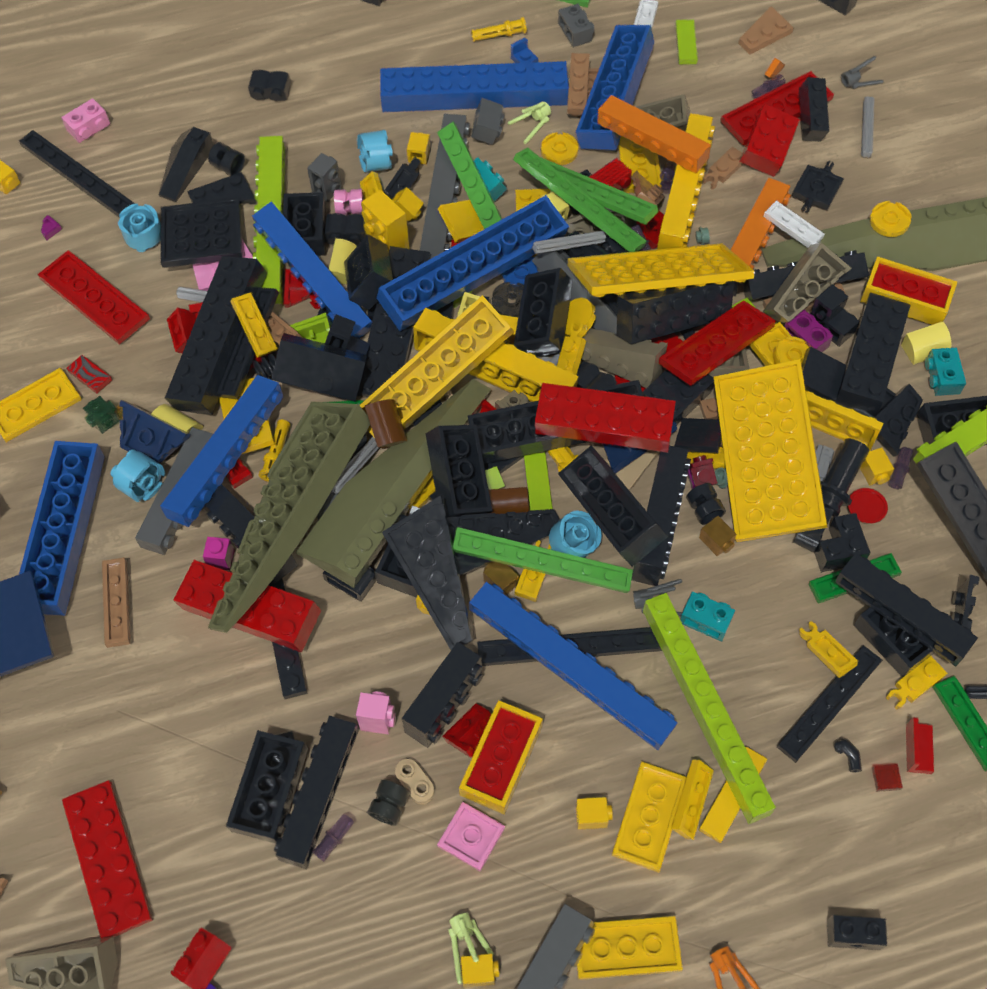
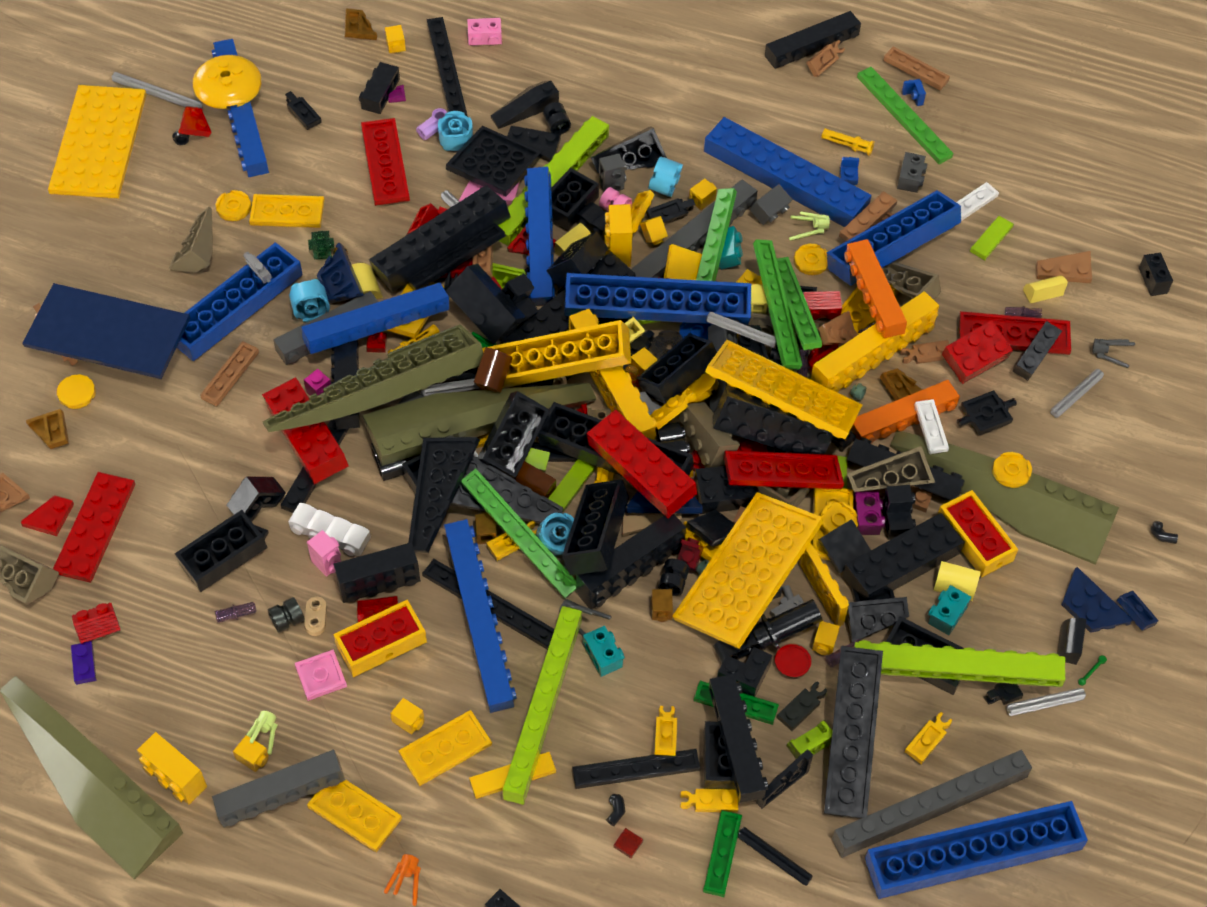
camera: 35 degrees right, 5 degrees down
(26, 231) = (379, 87): none -> black brick
(47, 884) = (49, 516): none -> red wing
(59, 476) = (257, 267): none -> light grey piece
(89, 374) = (338, 213): red tile -> none
(111, 234) = (430, 126): none -> lavender piece
(253, 324) = (466, 244): yellow tile -> none
(253, 706) = (255, 494): none -> black brick
(269, 85) = (635, 81): black brick -> none
(317, 792) = (250, 576): black brick -> none
(326, 137) = (637, 150): none -> black wedge
(344, 687) = (310, 522): none -> white brick
(692, 799) = (481, 756): yellow plate -> none
(732, 208) = (899, 384): none -> pearl gold wing
(770, 51) = (1045, 289): none -> light yellow brick
(774, 68) = (1043, 301): orange tile -> none
(909, 542) = (801, 707): none -> pearl dark grey plate
(919, 747) = (669, 840): red panel -> none
(947, 566) = (813, 740): none -> lime hinge

